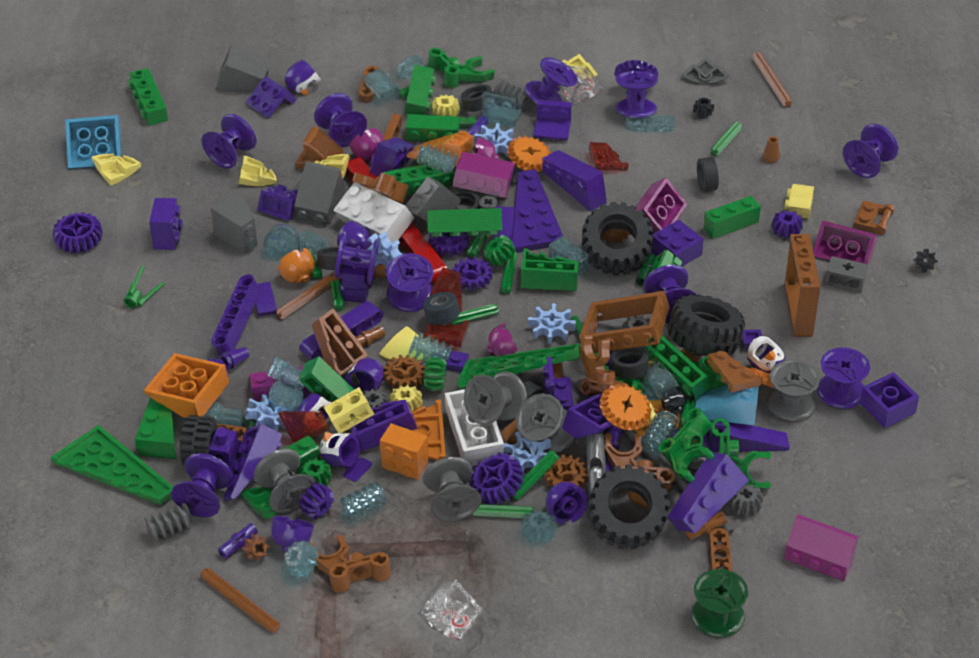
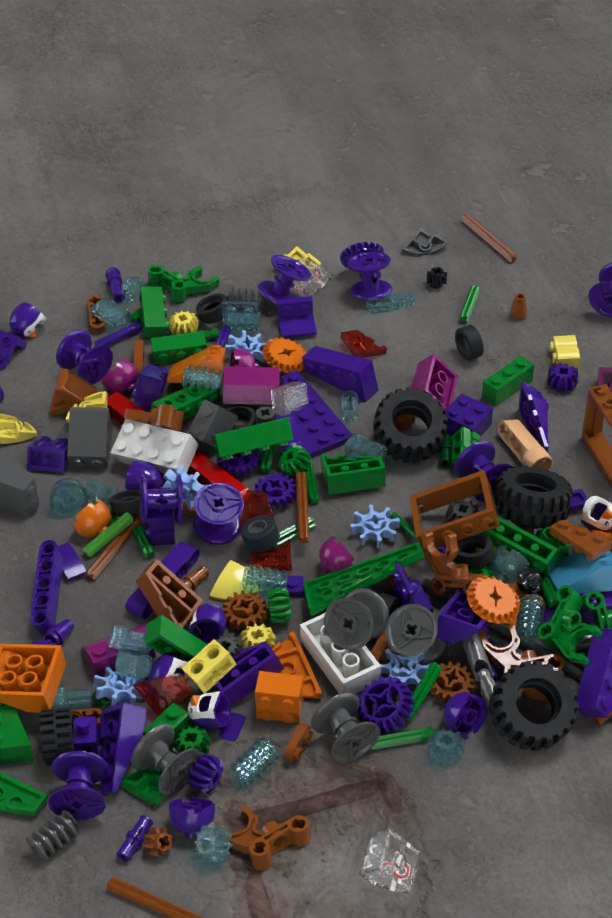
camera: 15 degrees left, 0 degrees up
(306, 282) = (108, 534): none -> bright green axle
(383, 107) = (119, 335): none -> dark purple axle
(395, 57) = (115, 281): none -> dark purple pin
(407, 494) = (295, 746): none -> dark orange plate
(490, 293) = (302, 507): none -> dark orange axle
(513, 192) = (289, 398): none -> clear brick
(569, 210) = (353, 405): none -> clear light blue beam
(722, 279) = (524, 444): none -> light nougat beam
(745, 254) = (534, 413): none -> dark purple wedge

